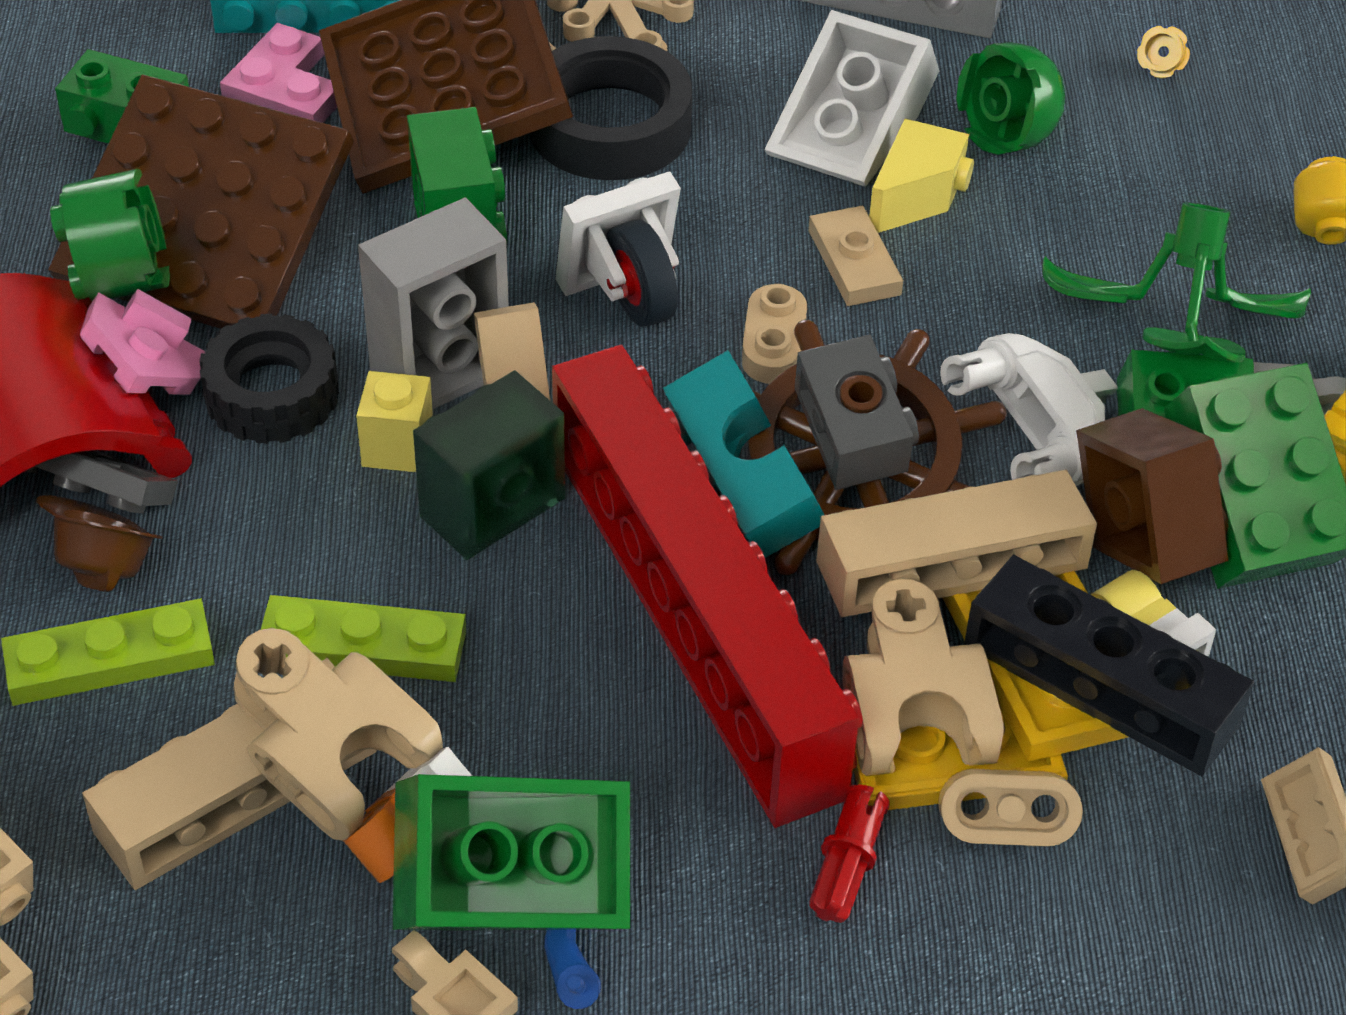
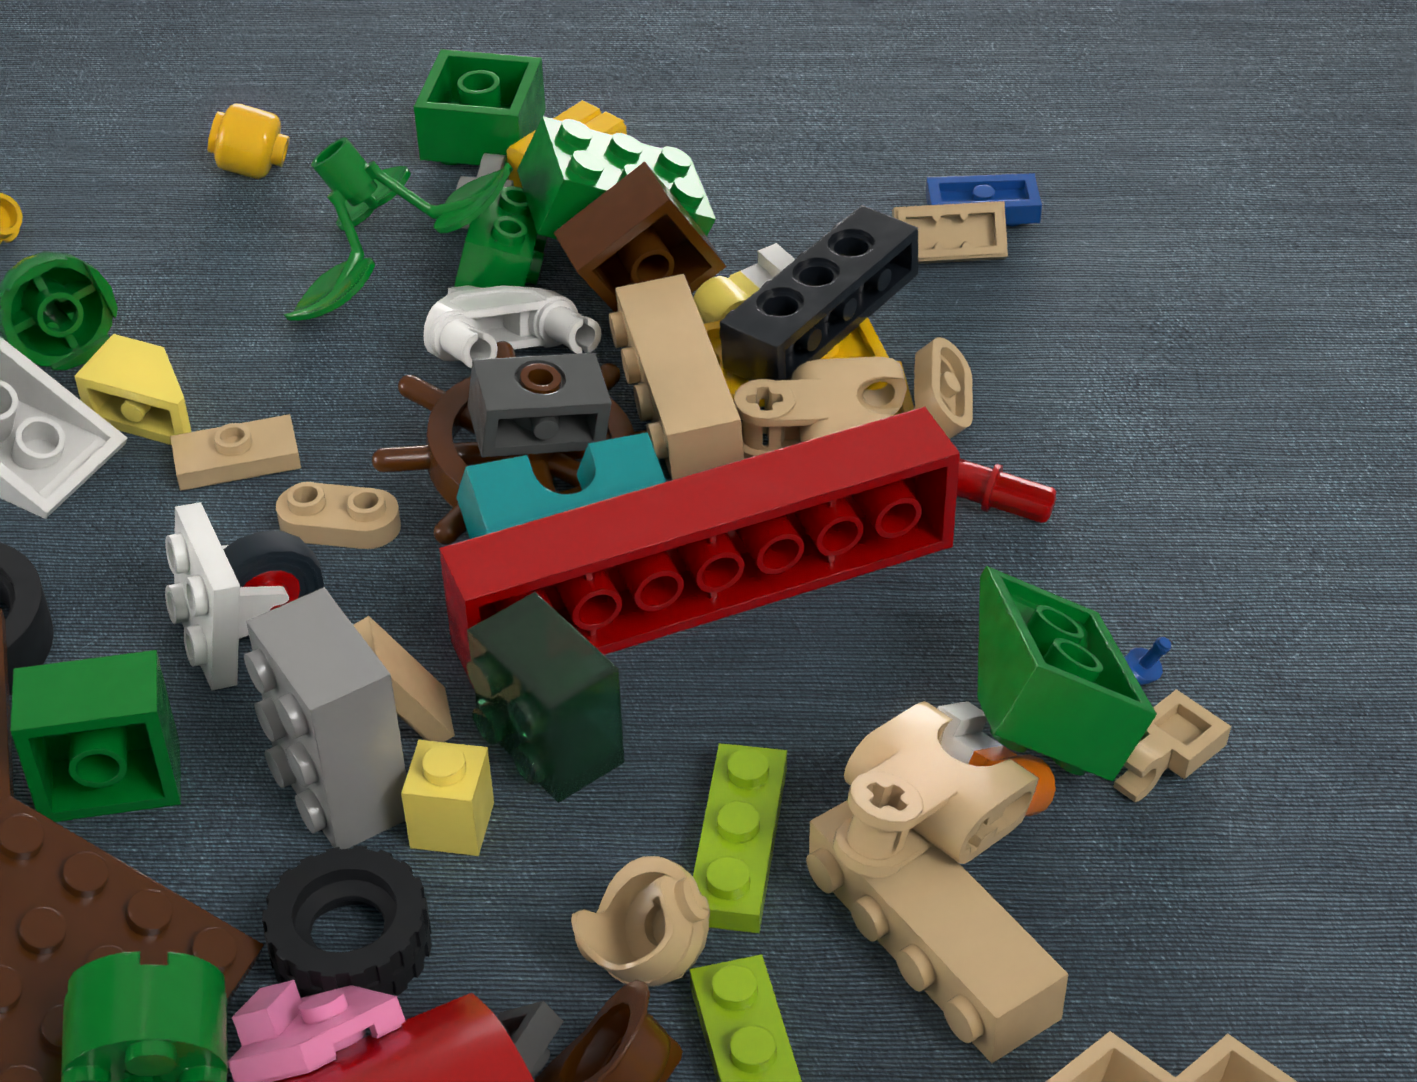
camera: 85 degrees left, 5 degrees down
(231, 557) = (646, 924): none -> tan cap

